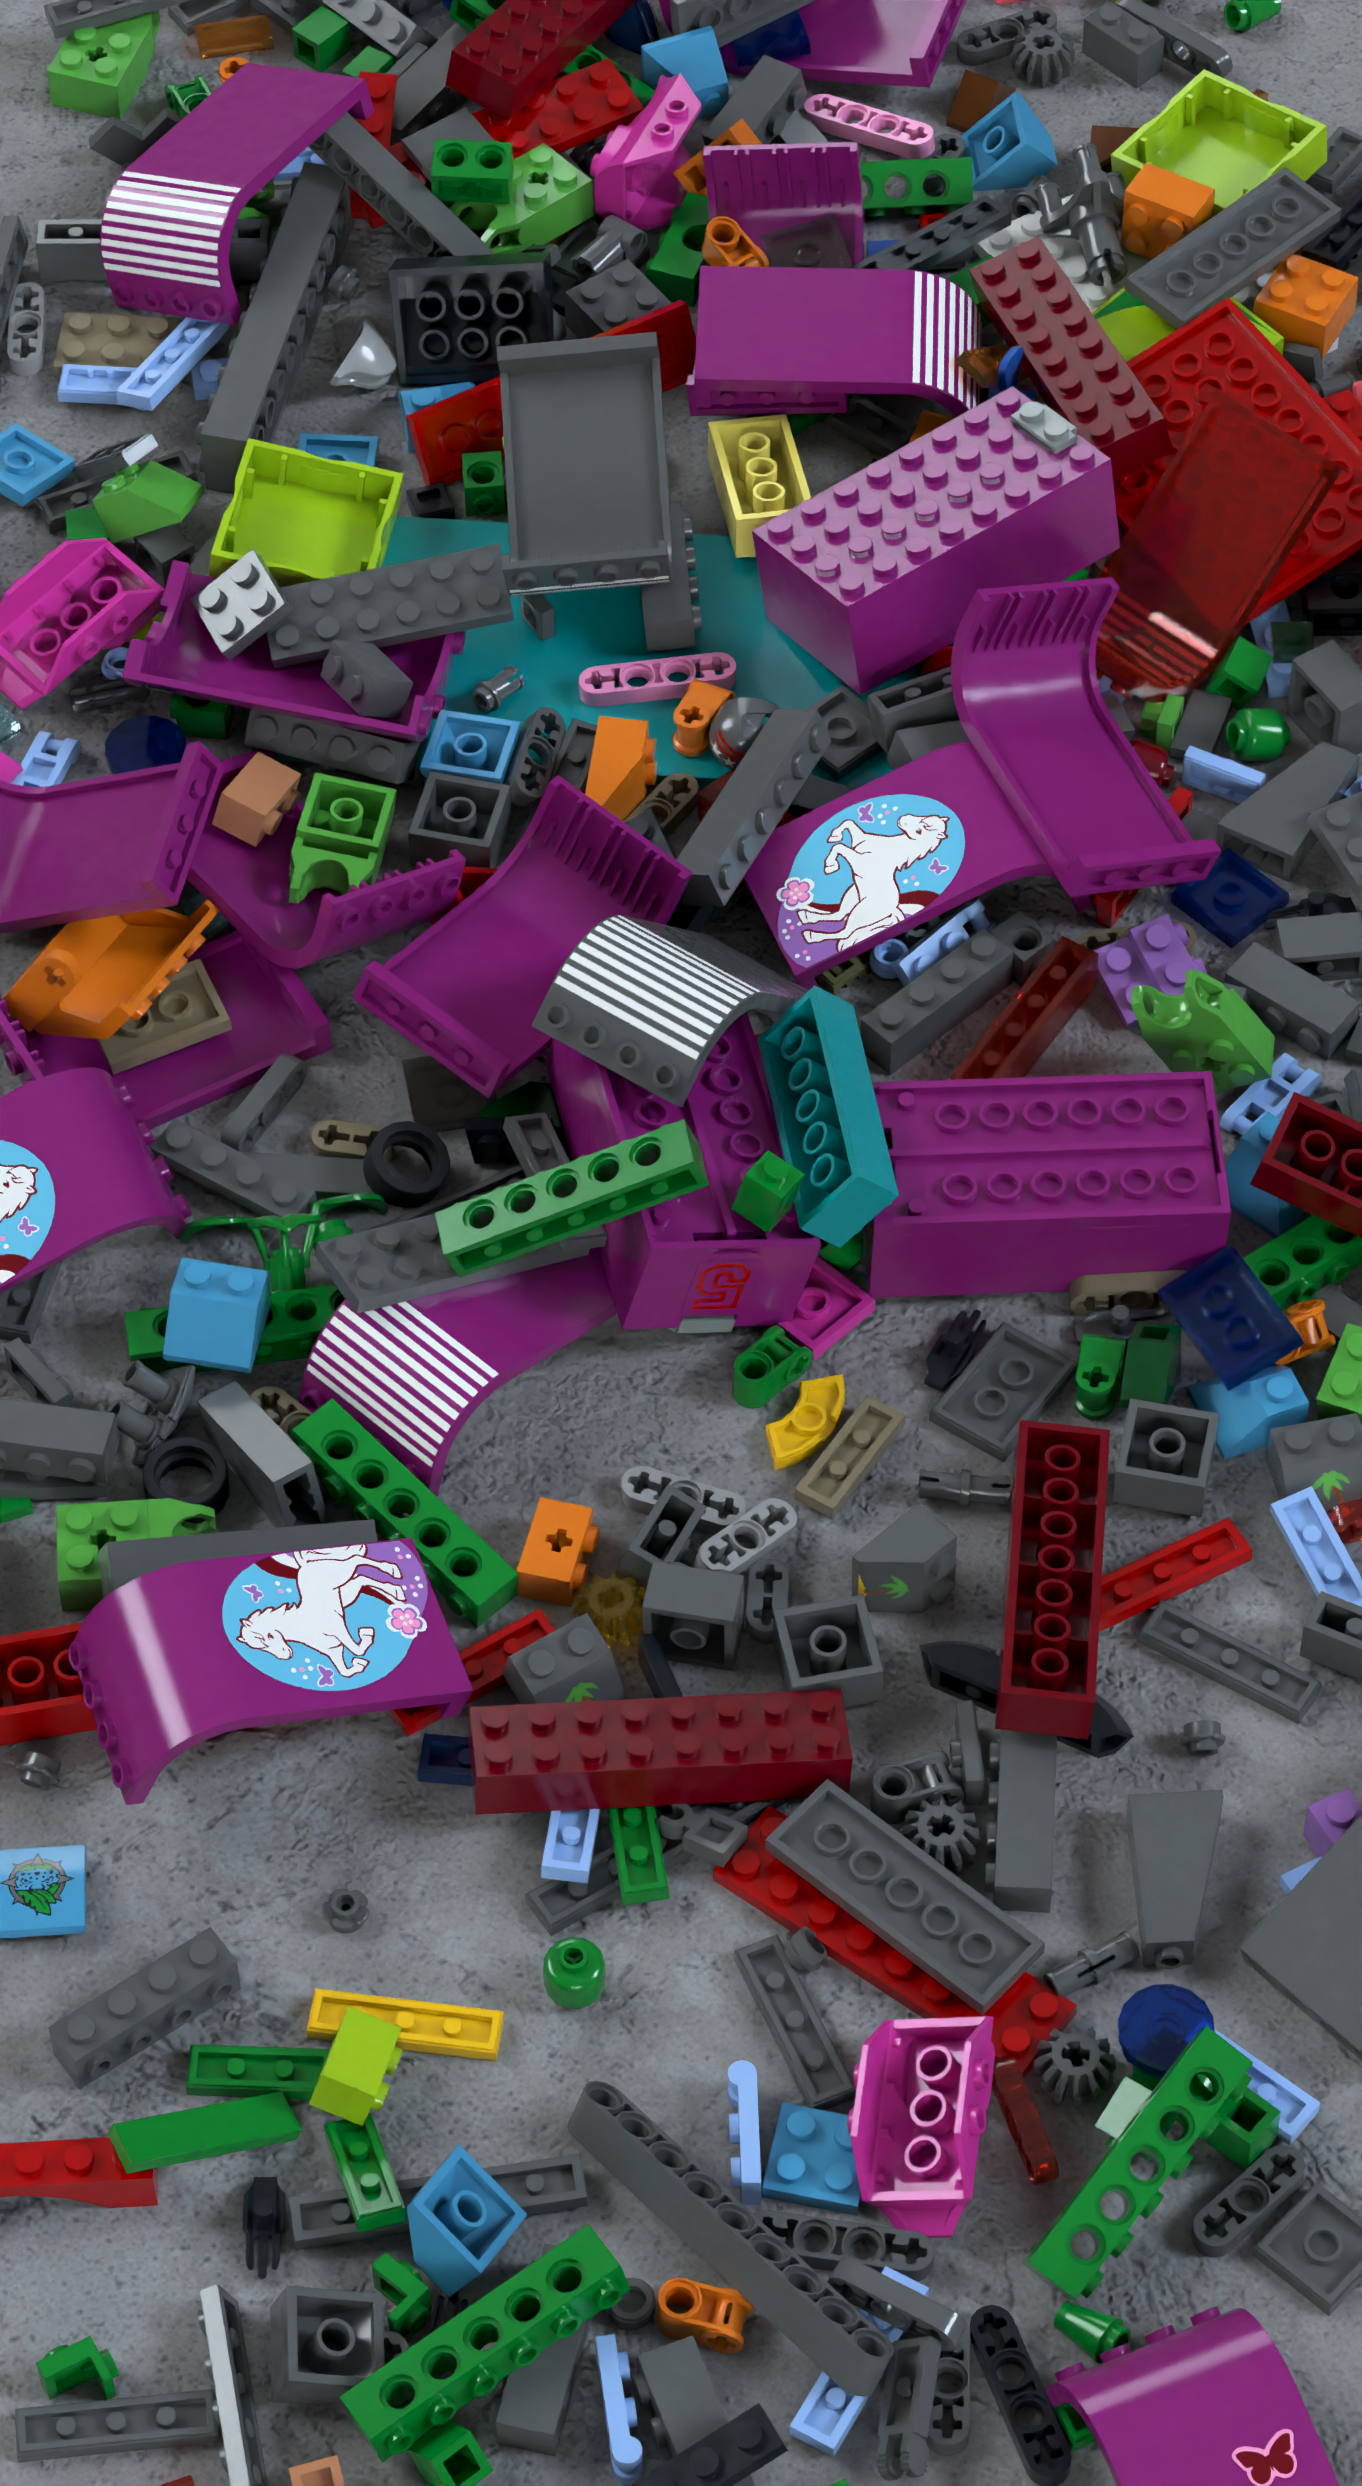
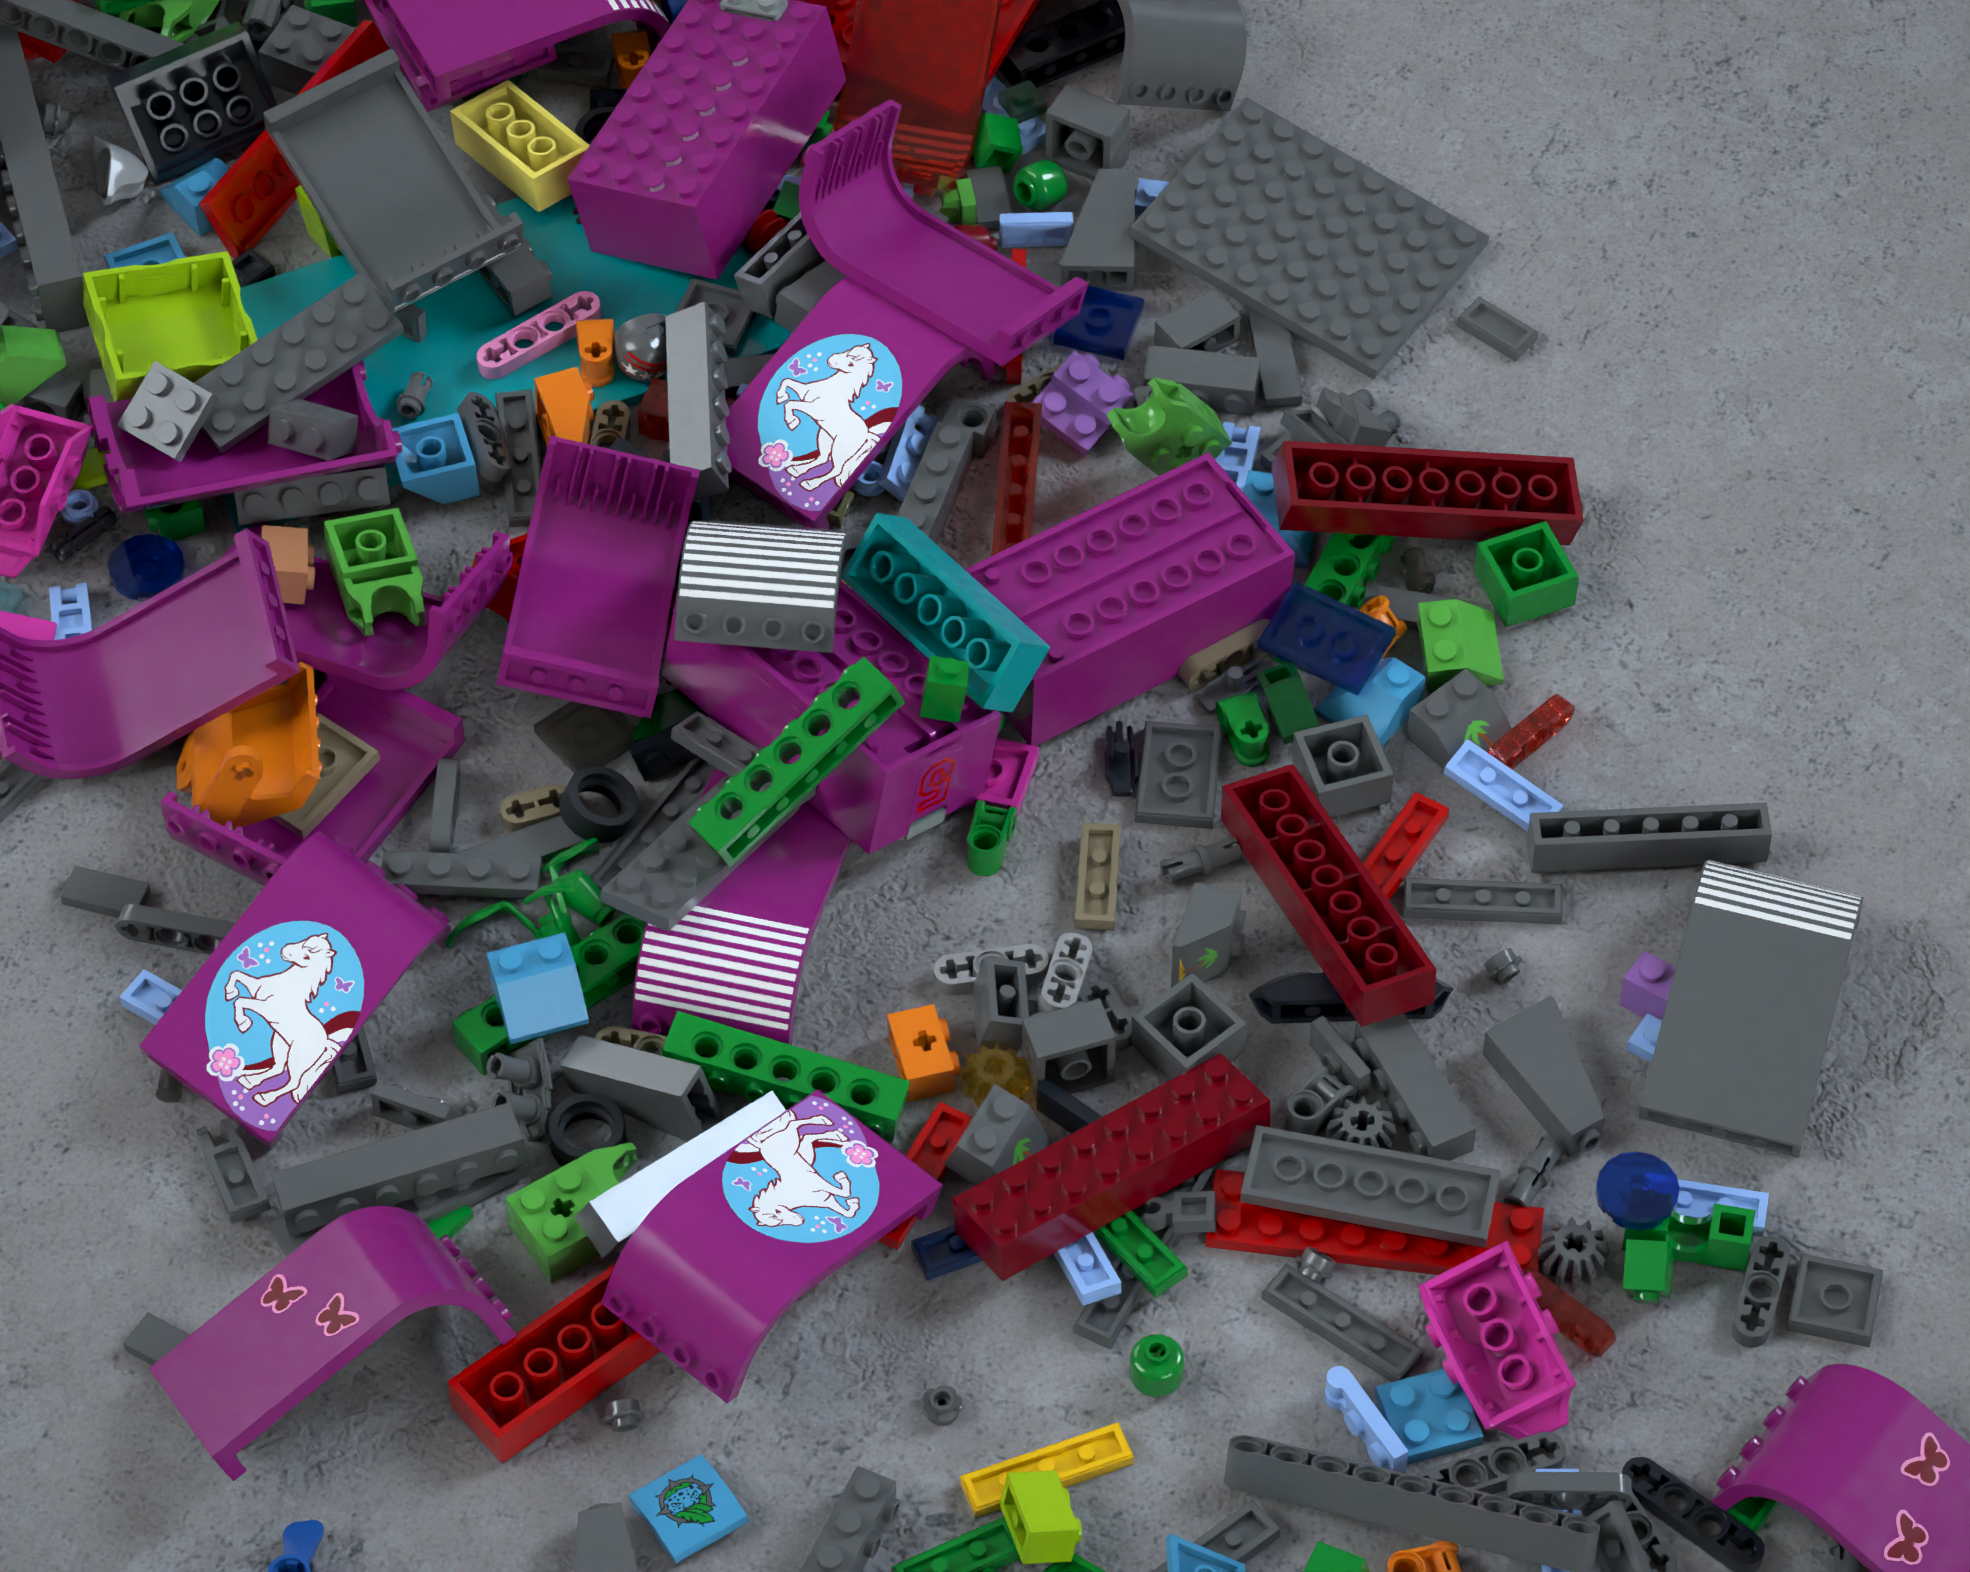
camera: 30 degrees left, 0 degrees up
(460, 816) = (457, 515): dark grey brick -> none
(483, 483) = (285, 235): green brick -> none
(809, 1423) = (1046, 865): yellow tile -> none
(1052, 2256) = (1654, 1396): green brick -> none
(1091, 2329) = (1715, 1441): green cone -> none
(1314, 905) = (1170, 300): black piece -> none

